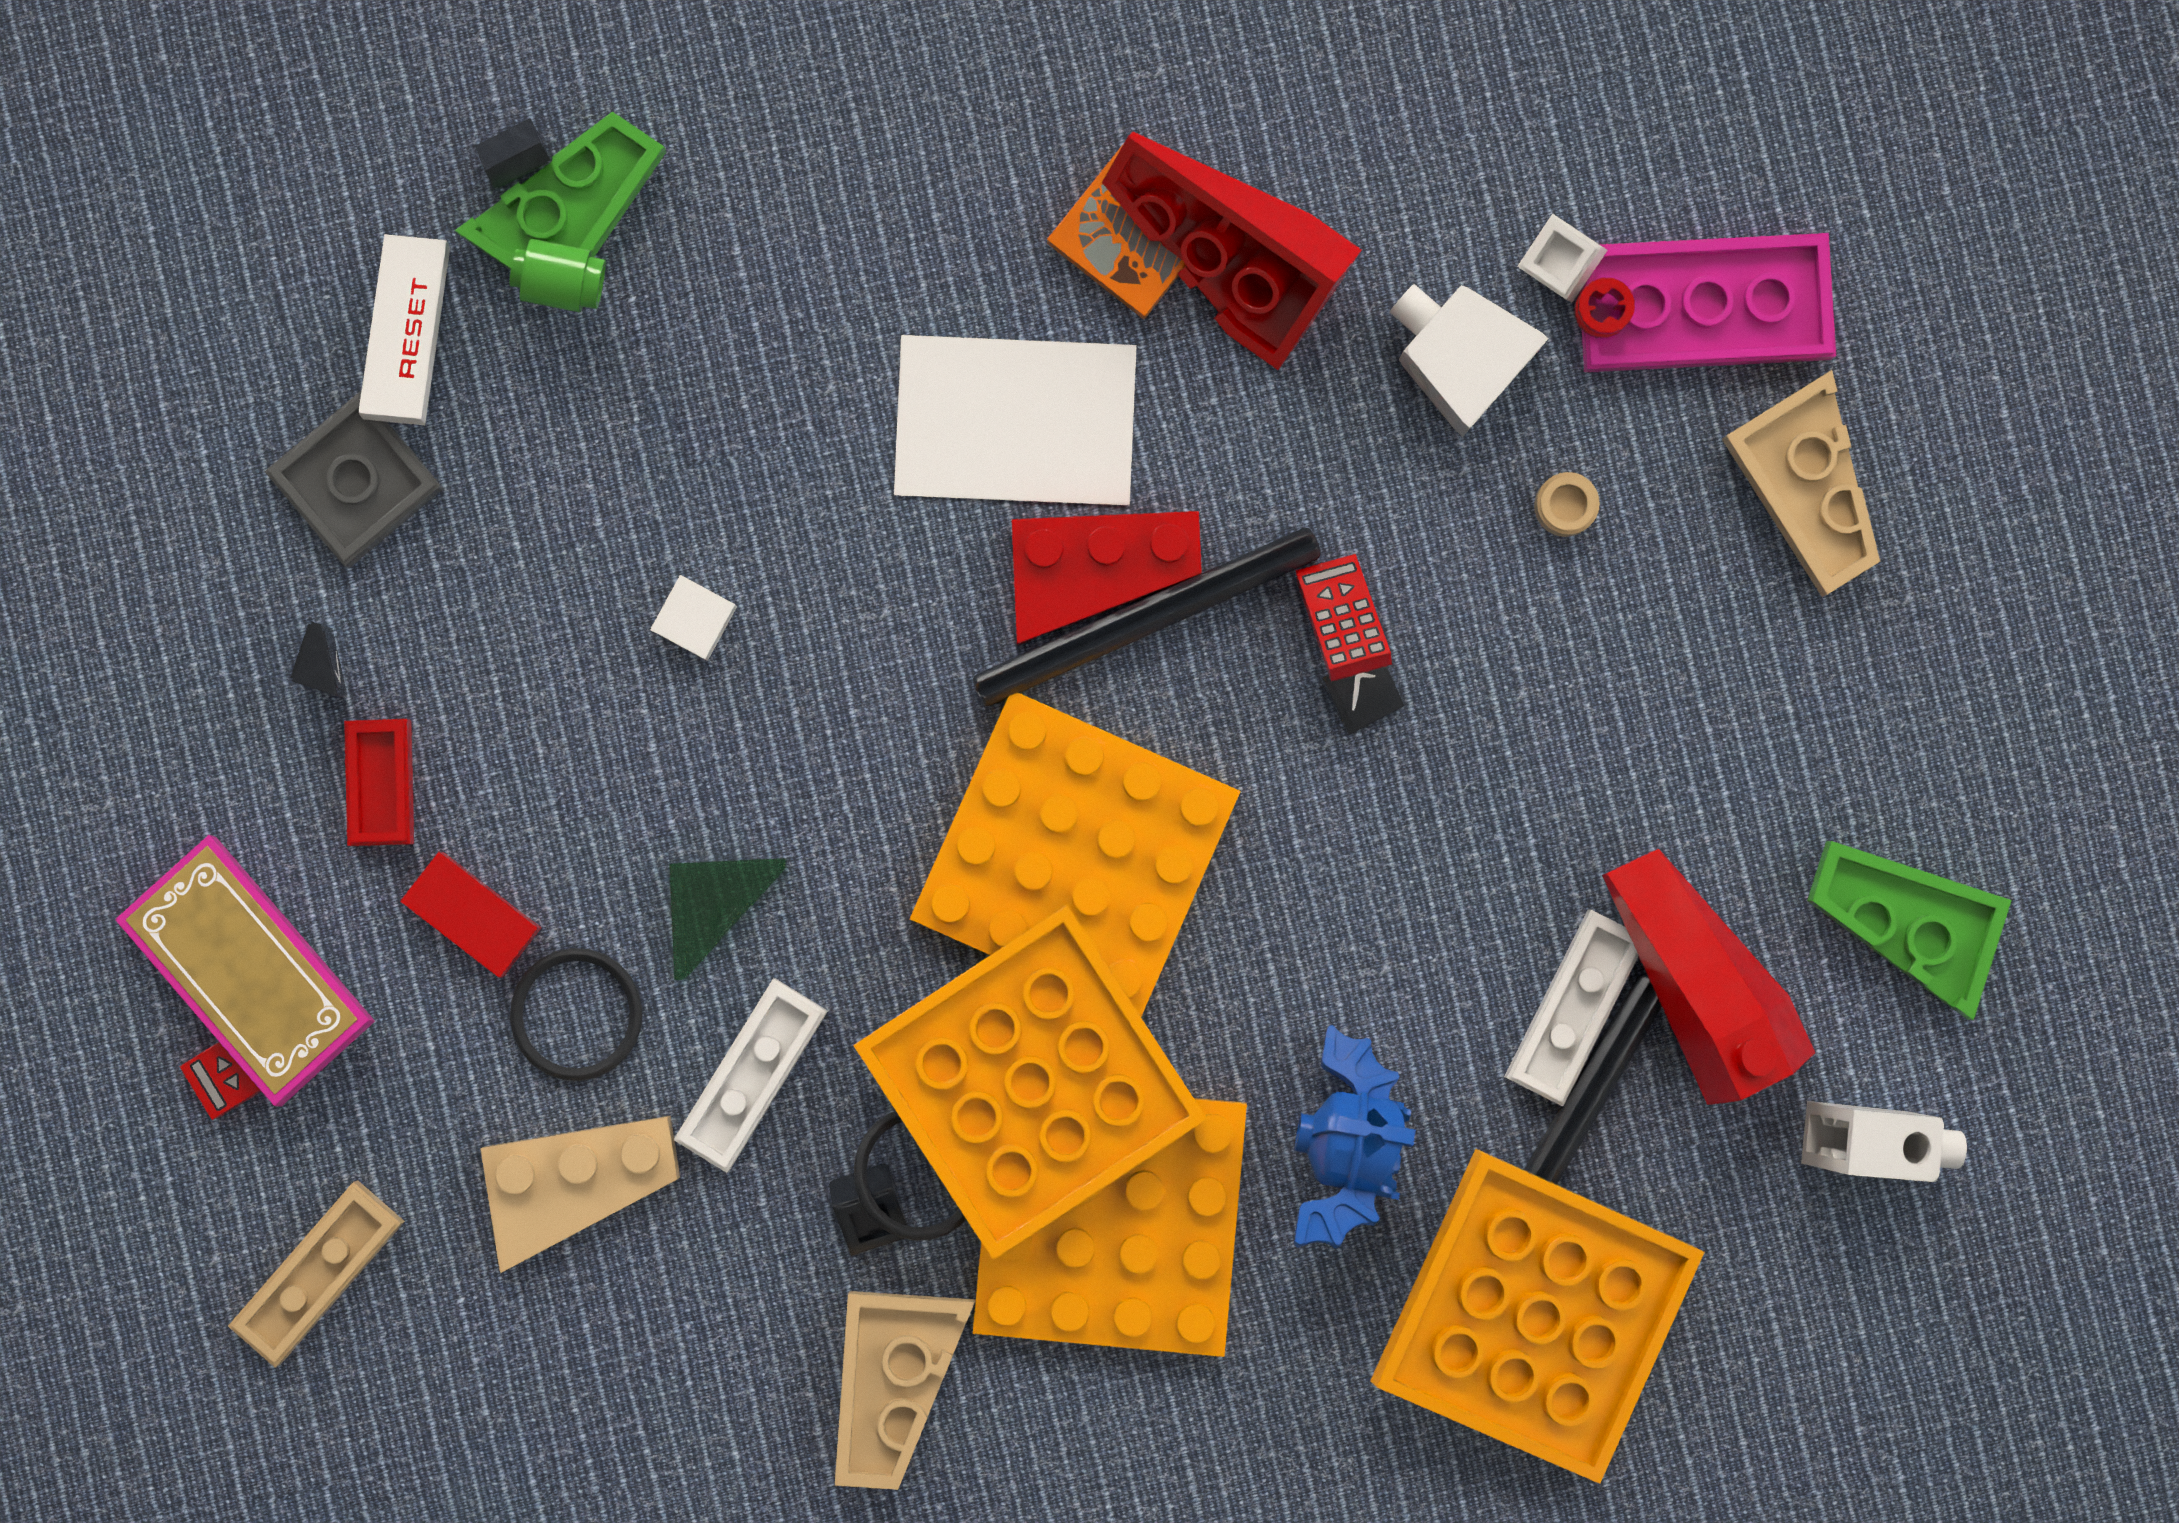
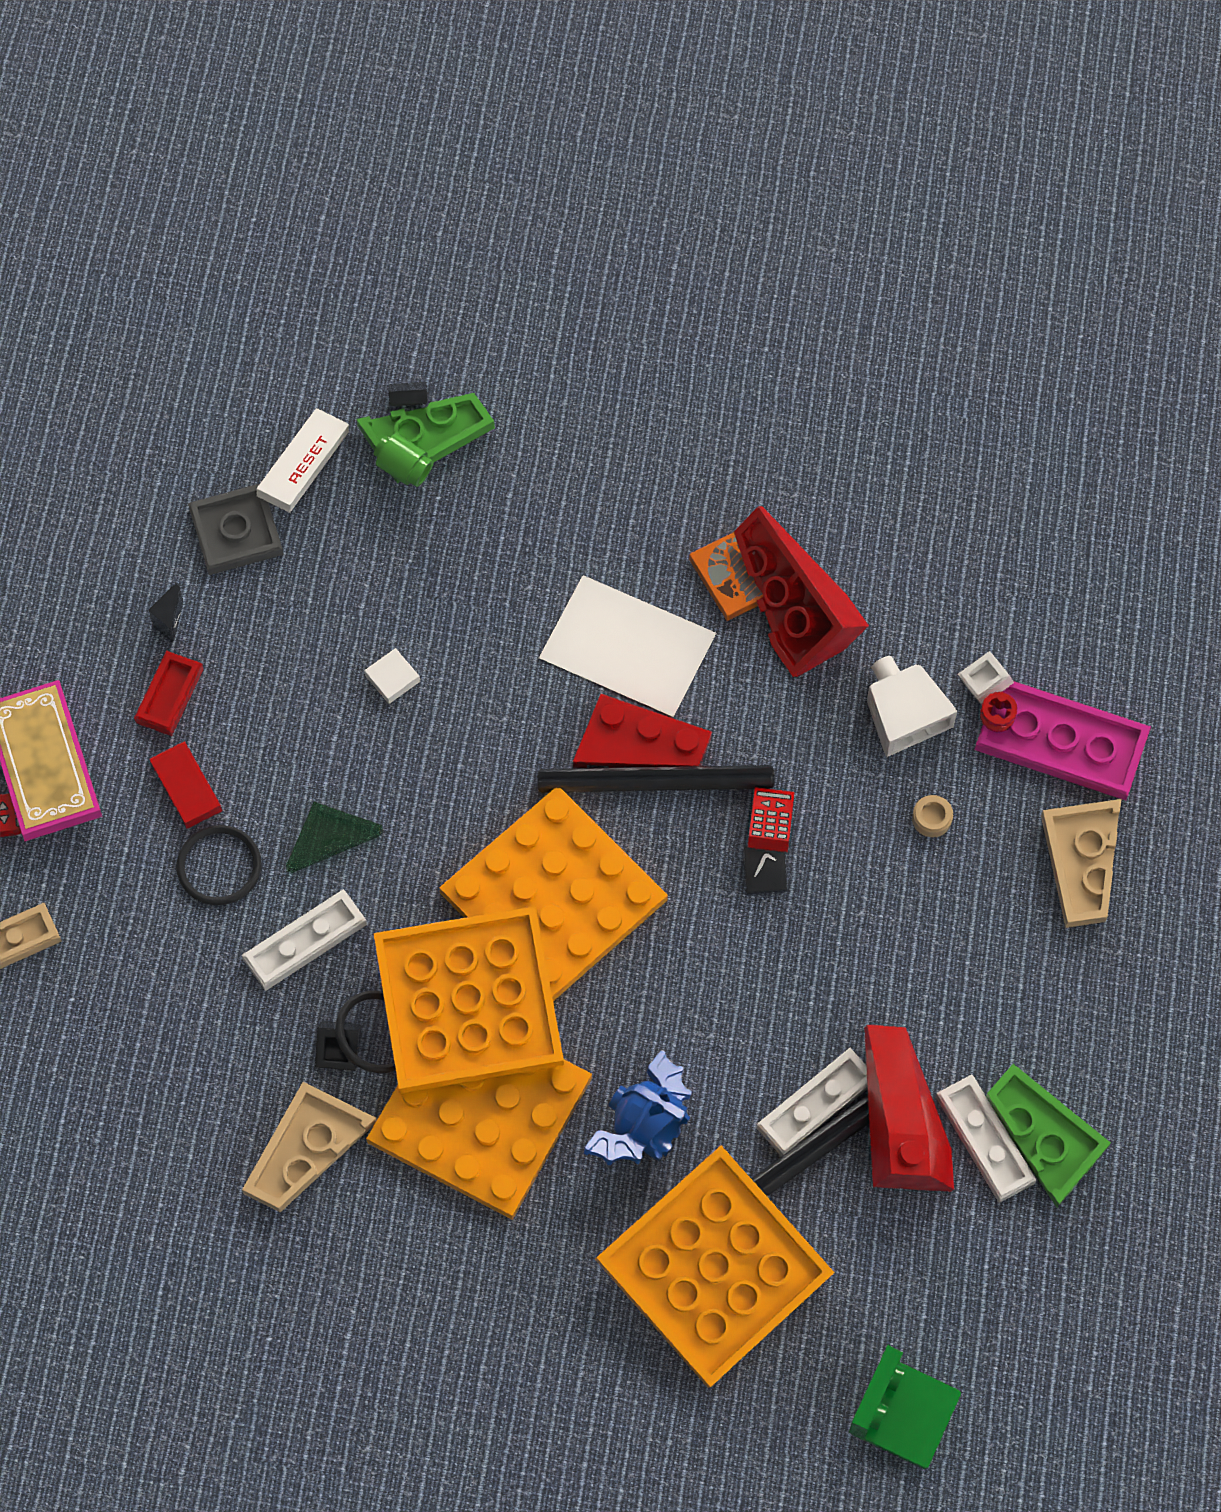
camera: 25 degrees right, 20 degrees down
(570, 1180) = (170, 954): tan wing -> none
(1830, 959) = (985, 1138): none -> white tile
(1872, 1400) = (904, 1410): none -> green bracket
(1879, 1142) = (971, 1249): white torso -> none

